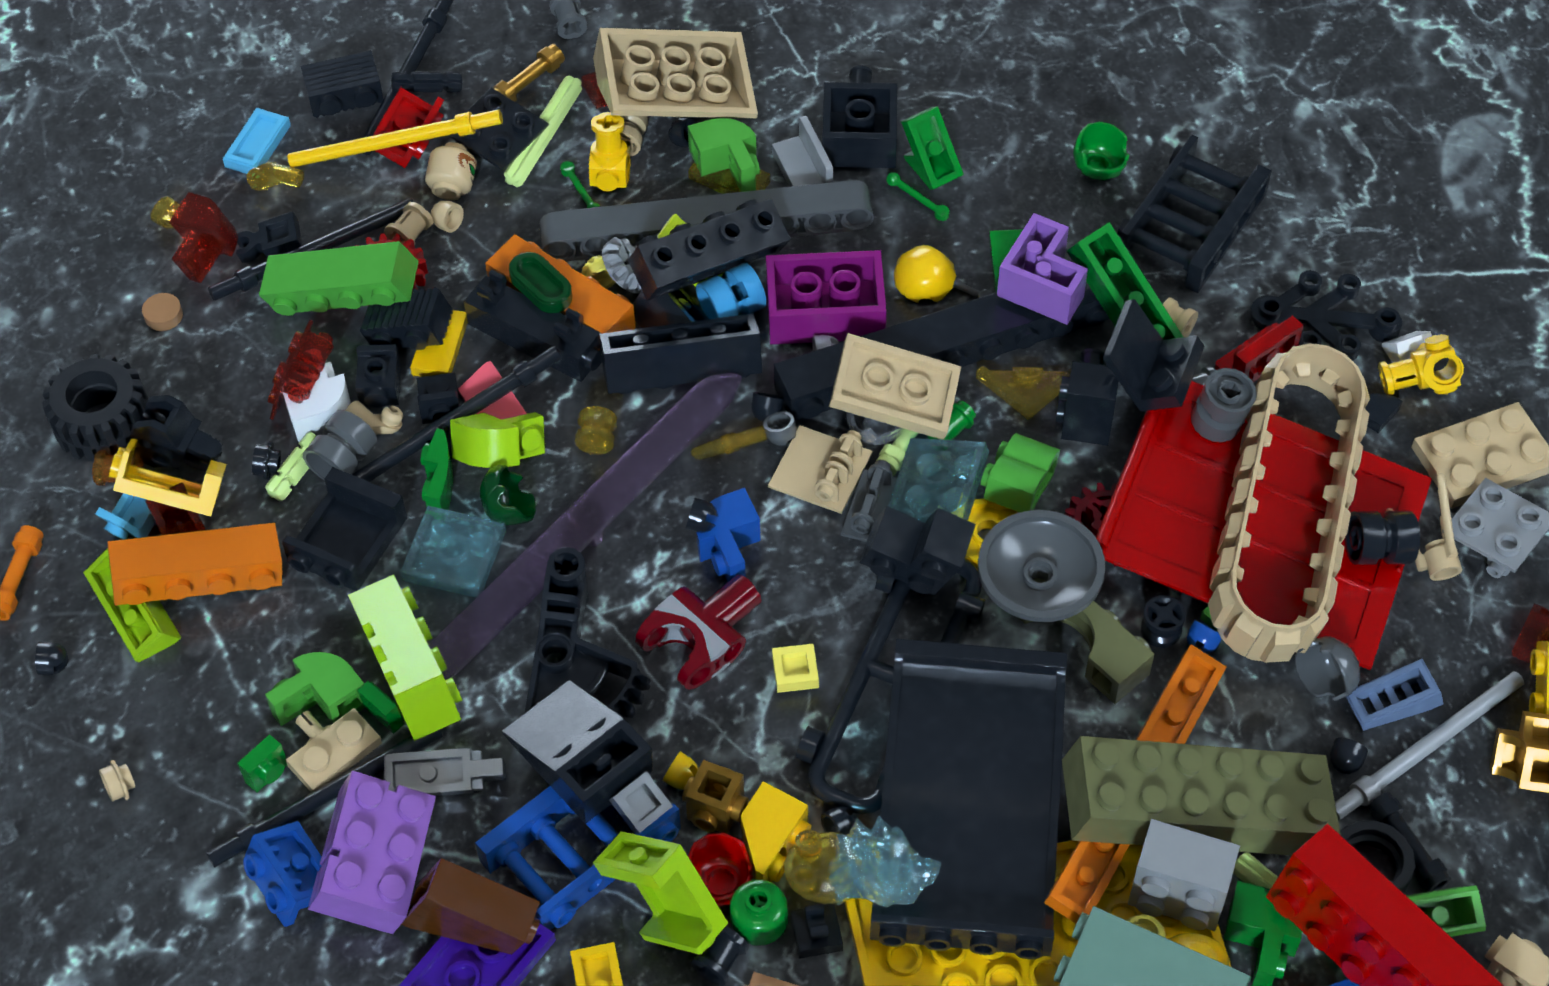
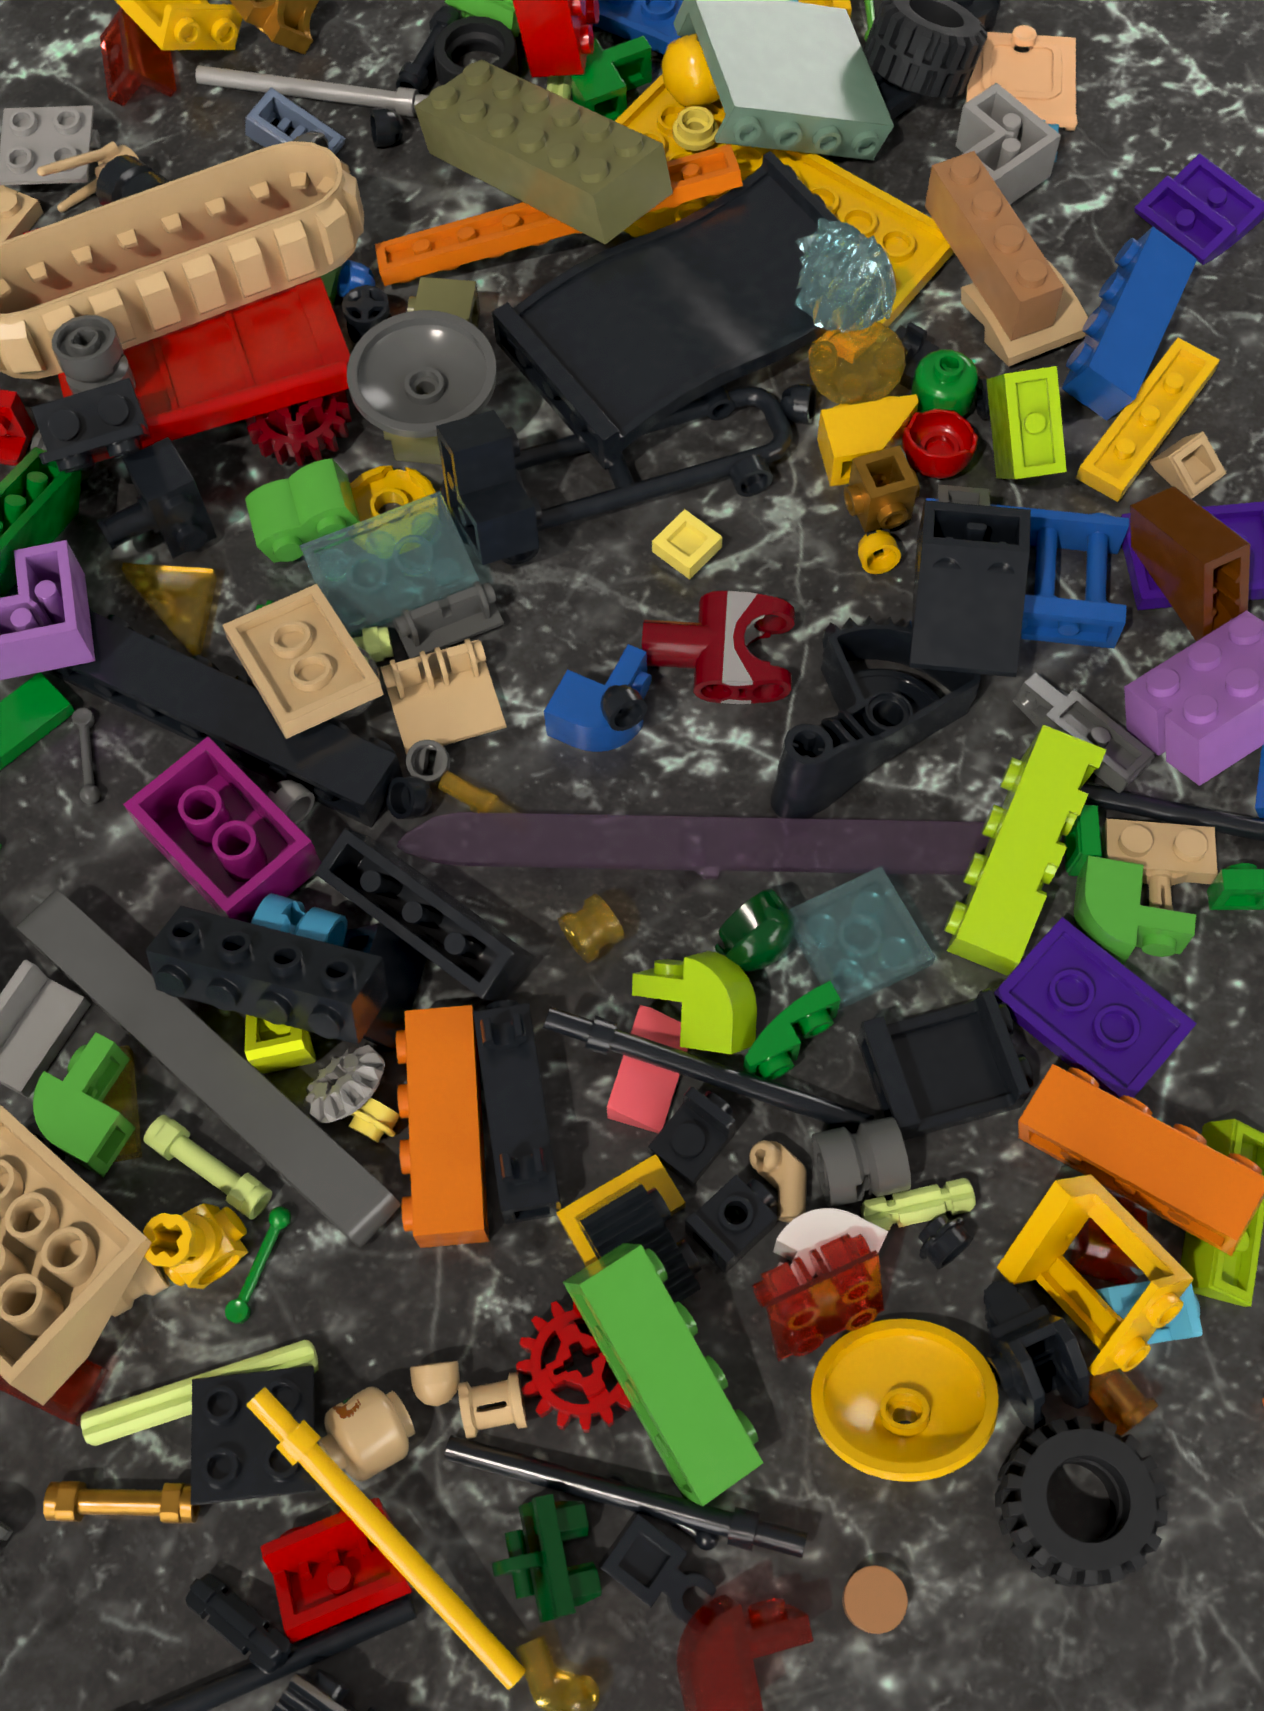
camera: 130 degrees left, 10 degrees up
(230, 352) = (908, 1374): none -> yellow dish
(282, 623) = (1093, 1011): none -> dark purple plate
(333, 209) = (540, 1562): none -> dark green hips
(540, 282) = (463, 1130): dark green tile -> none
(681, 188) = (243, 1192): none -> yellowish green bar
(924, 274) = (101, 782): yellow hair -> none
(1183, 875) = (628, 89): light grey brick -> none

